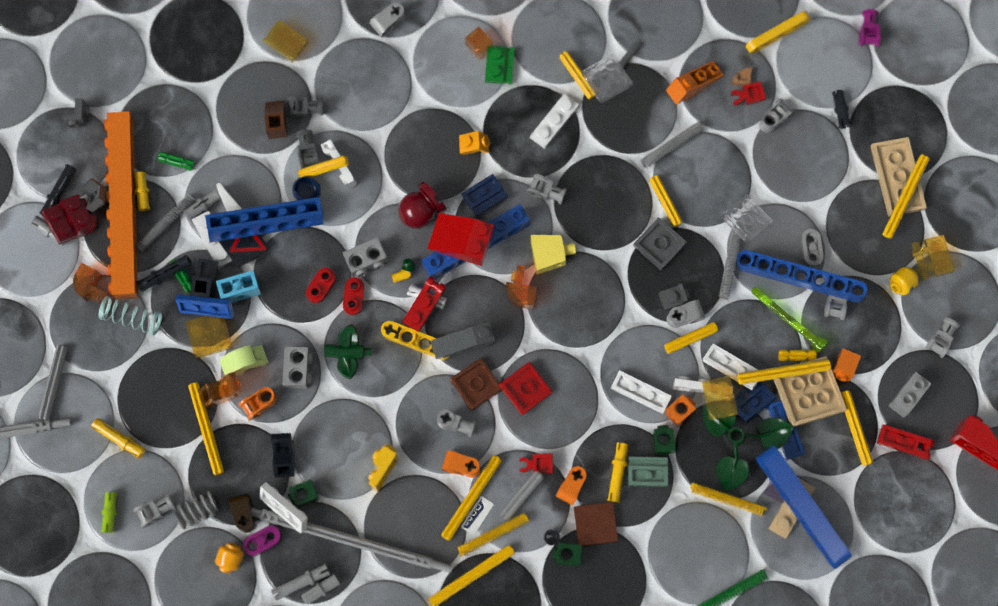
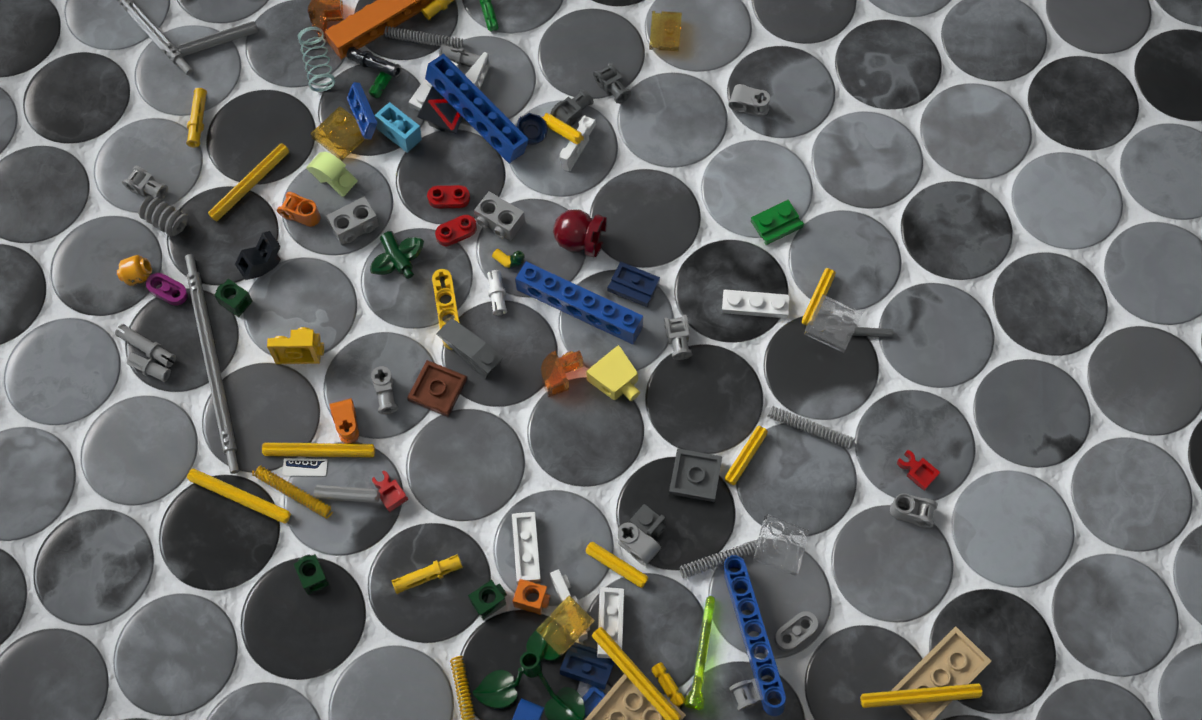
camera: 60 degrees right, 10 degrees down
(109, 512) = (122, 150): lime pin -> none
(204, 282) = (379, 95): black brick -> none
(220, 391) = (289, 171): clear orange brick -> none
(241, 509) = (184, 251): dark brown piece -> none
(275, 119) = (581, 65): reddish brown slope -> none
(283, 507) = (208, 286): white plate -> none
(424, 304) = (484, 291): red plate -> none
(461, 238) = (568, 281): red slope -> none
(474, 142) = (681, 244): light orange bracket -> none
(478, 42) = (784, 187): clear orange panel -> none
(525, 388) = (460, 434): red plate -> none
(551, 541) = (316, 549): black hinge -> none
(570, 488) = (382, 536): orange piece -> none
(595, 524) = (360, 584): copper tile -> none
(648, 471) = (445, 603): sand green plate -> none
(693, 82) = (891, 408): orange slope -> none
(742, 77) = (933, 454): medium nougat tile -> none
(778, 32) = (1007, 460): yellow beam -> none
(841, 109) = (971, 573): black pin -> none
(869, 30) = (1079, 552): magenta connector -> none

